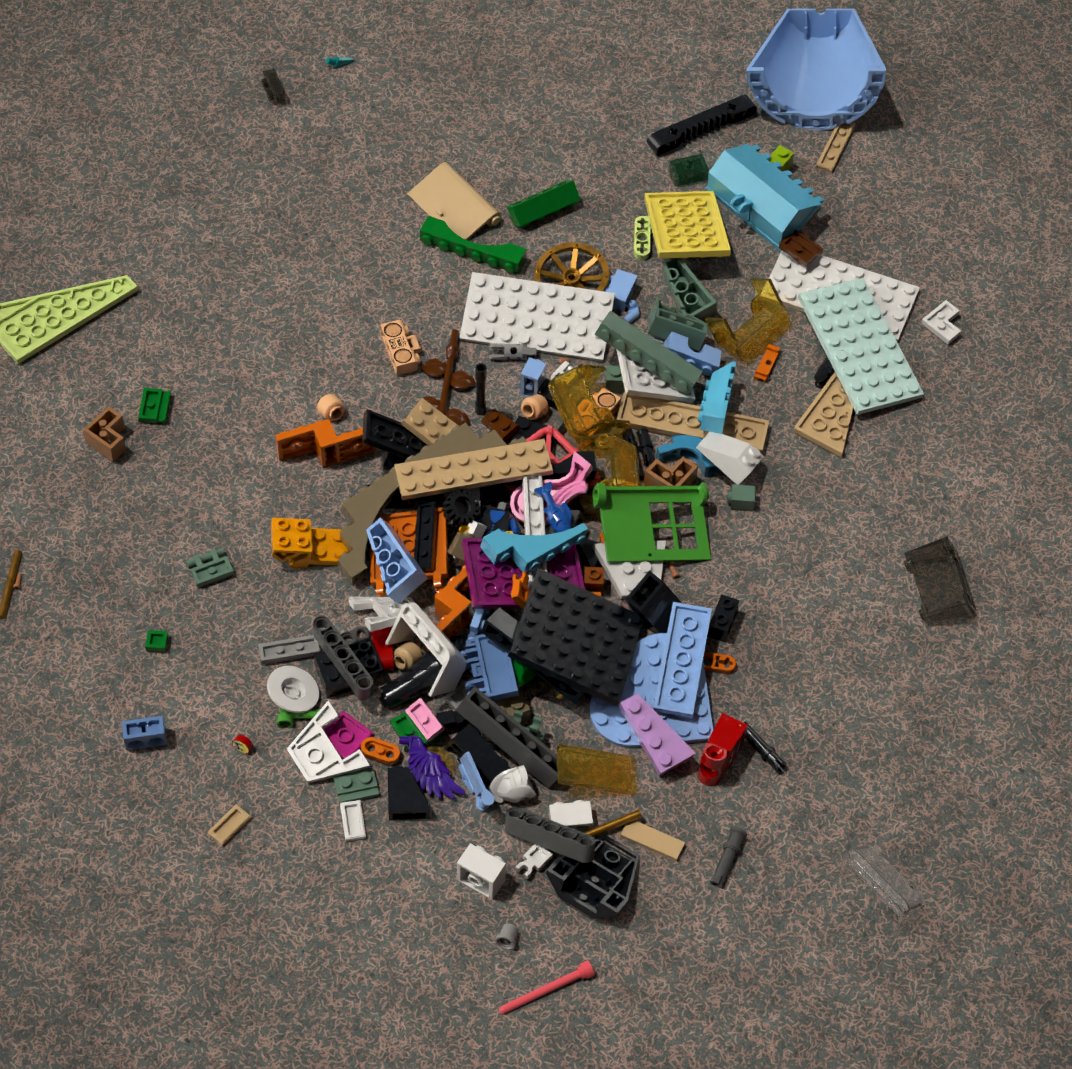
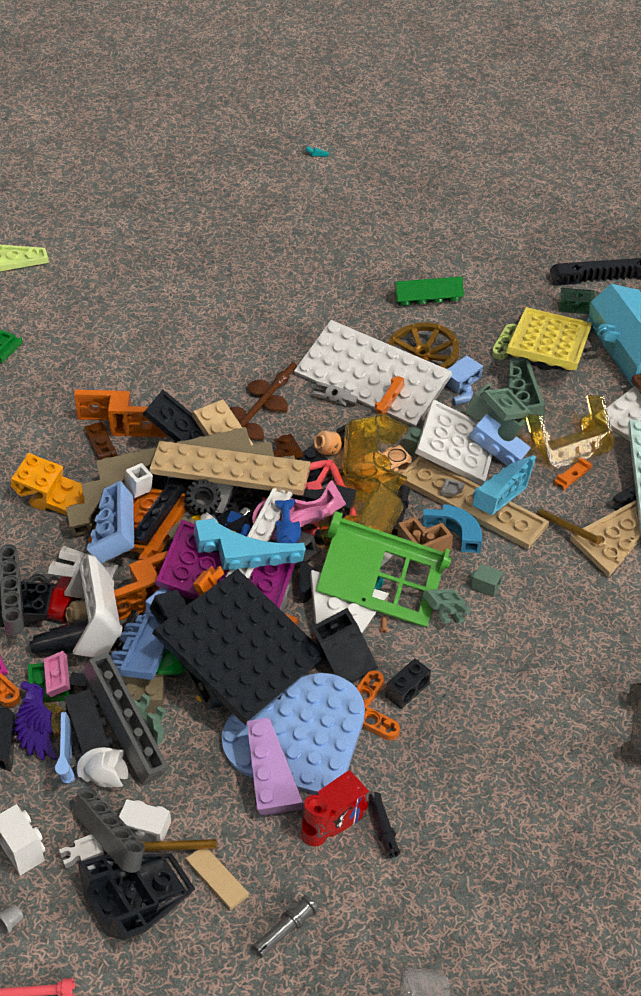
camera: 25 degrees right, 10 degrees down
(275, 90) = (250, 154): clear smoke piece -> none
(317, 478) = (100, 441): none -> reddish brown plate
(331, 407) = (146, 390): light nougat head -> none
(391, 509) = (138, 480): none -> white brick
(397, 341) = (234, 367): light nougat piece -> none
(450, 194) = (353, 269): tan door -> none
(480, 376) = (279, 391): black piece -> none
(505, 256) = (373, 321): green arch -> none
(532, 377) = (337, 414): light blue brick -> none
(571, 326) = (390, 396): none -> orange piece
(594, 579) = (297, 605): dark orange brick -> none
(596, 769) = (195, 783): clear yellow tile -> none
(645, 446) = (415, 507): black pin -> none
(648, 353) = (454, 425): sand green brick -> none
(670, 416) = (451, 488): none -> light grey tile
(682, 660) = (339, 706): light blue plate -> none
(686, 316) = (505, 404): none -> sand green plate
(721, 531) = (447, 602): none -> sand green plate
(730, 455) = (491, 537): white slope -> none
(788, 419) = (569, 526): none -> pearl gold bar

